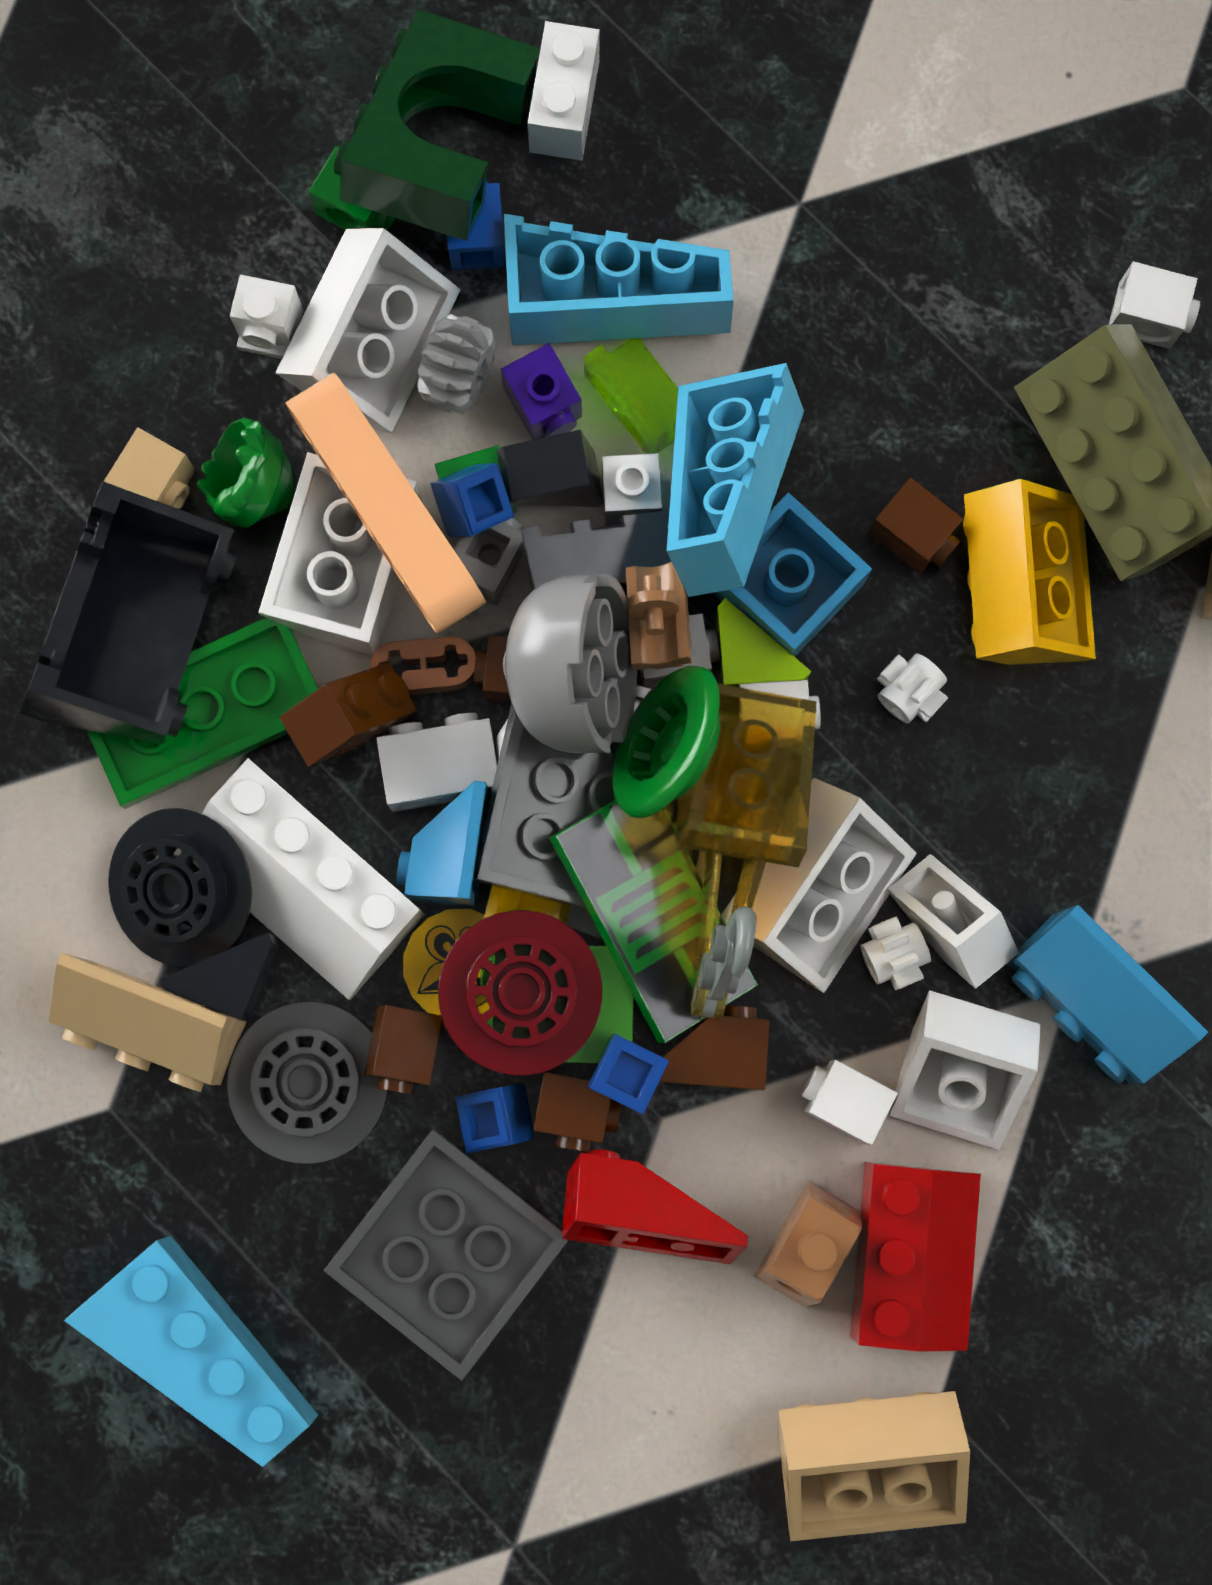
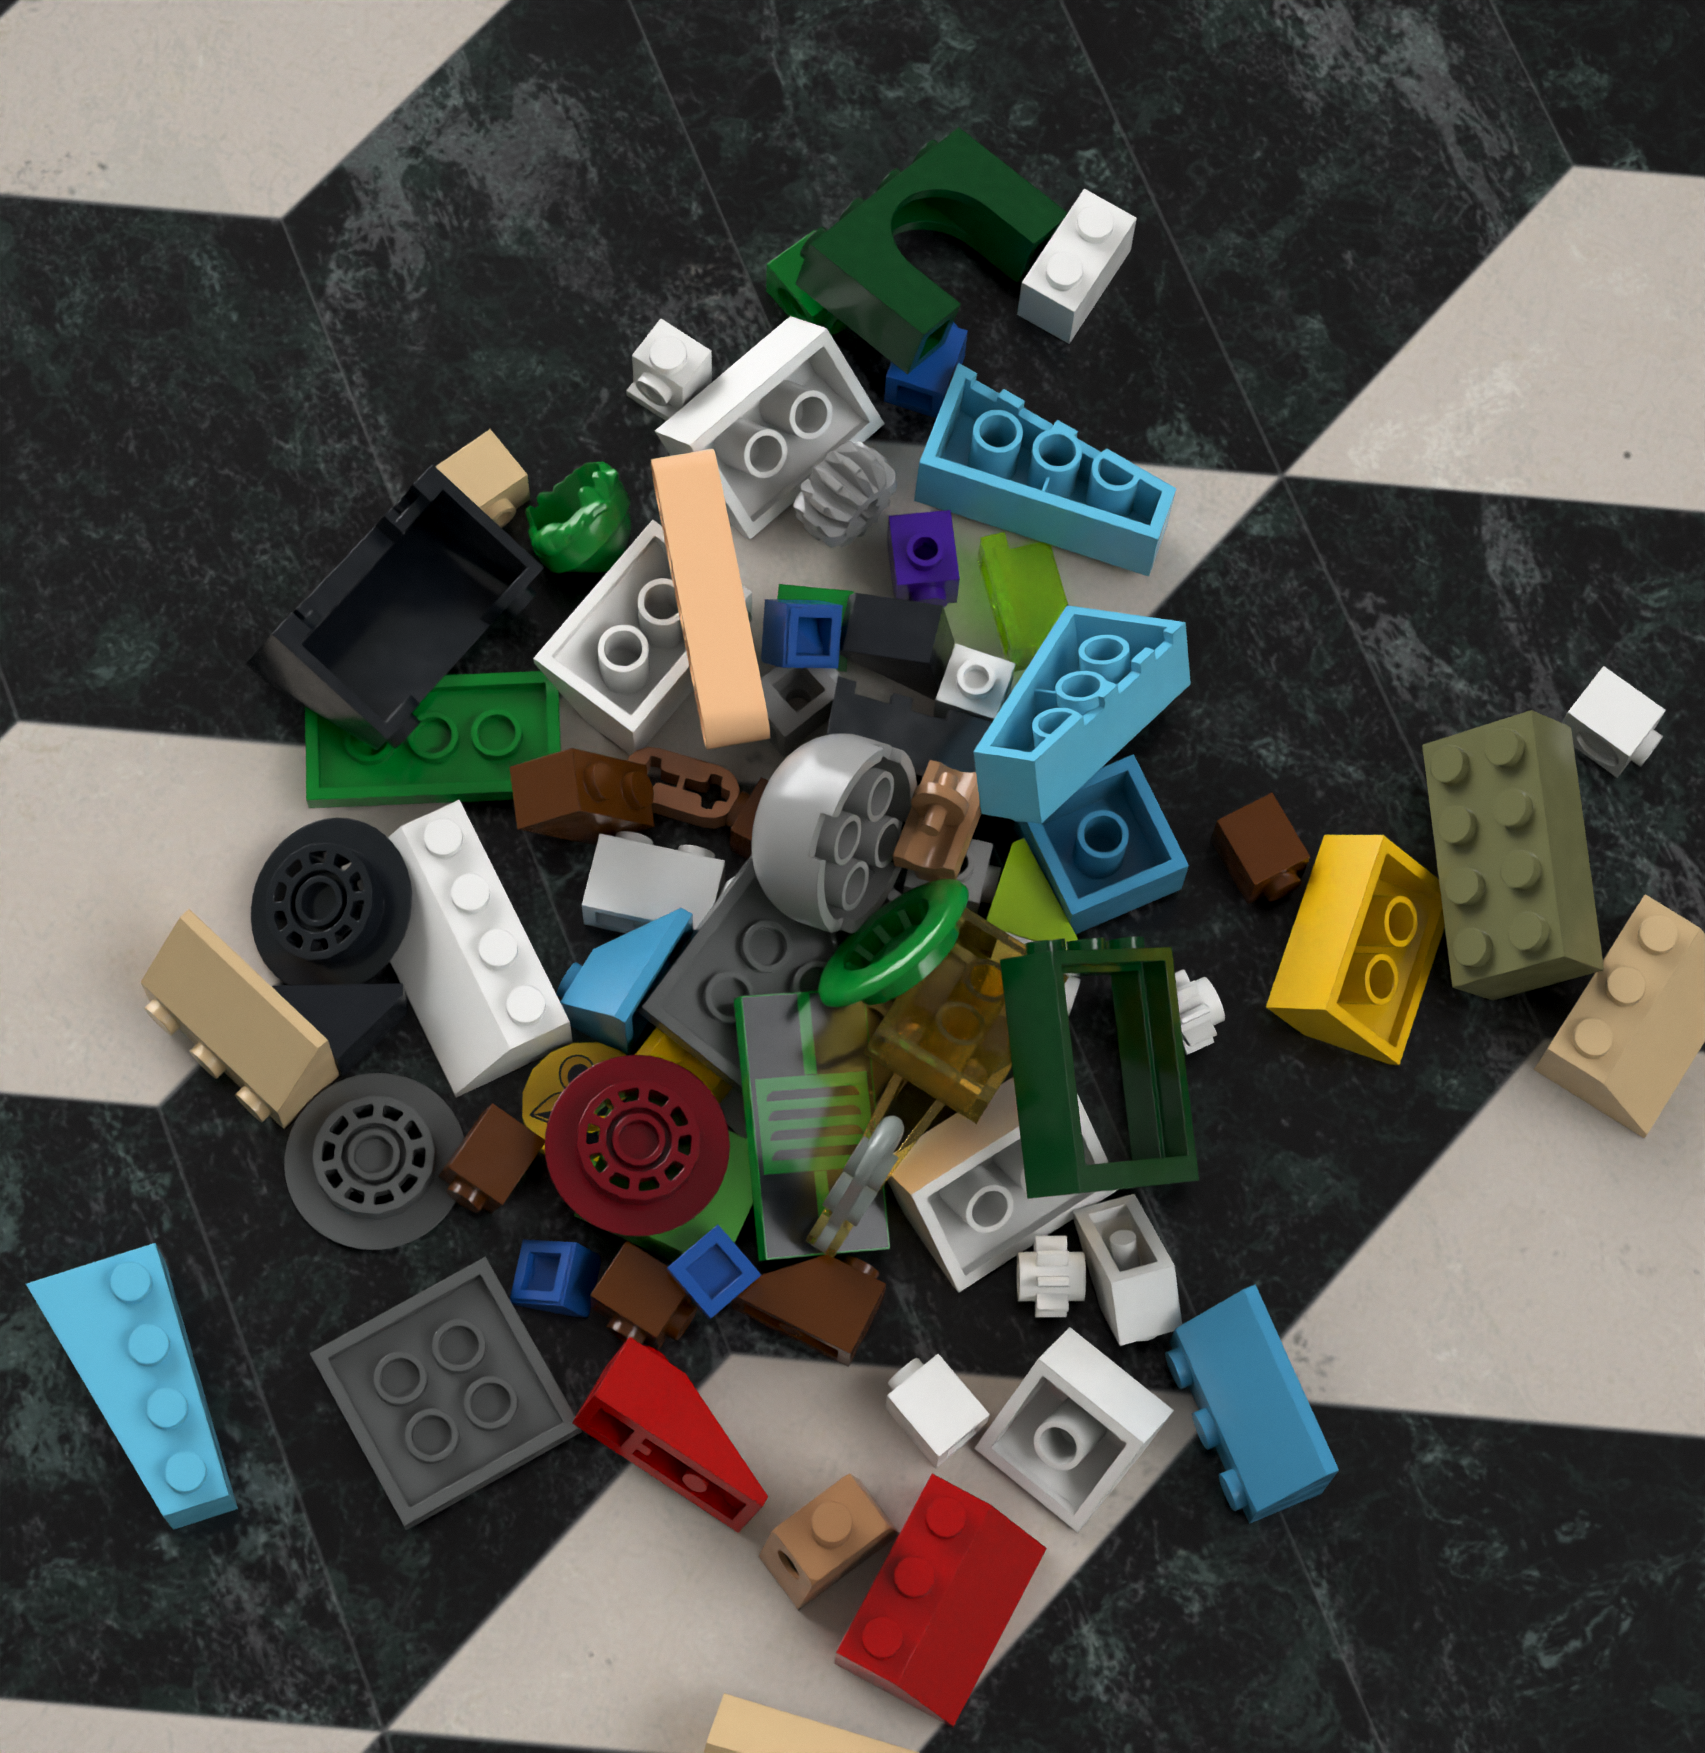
camera: 20 degrees right, 10 degrees down
(836, 795) = (1149, 1058): none -> dark green window

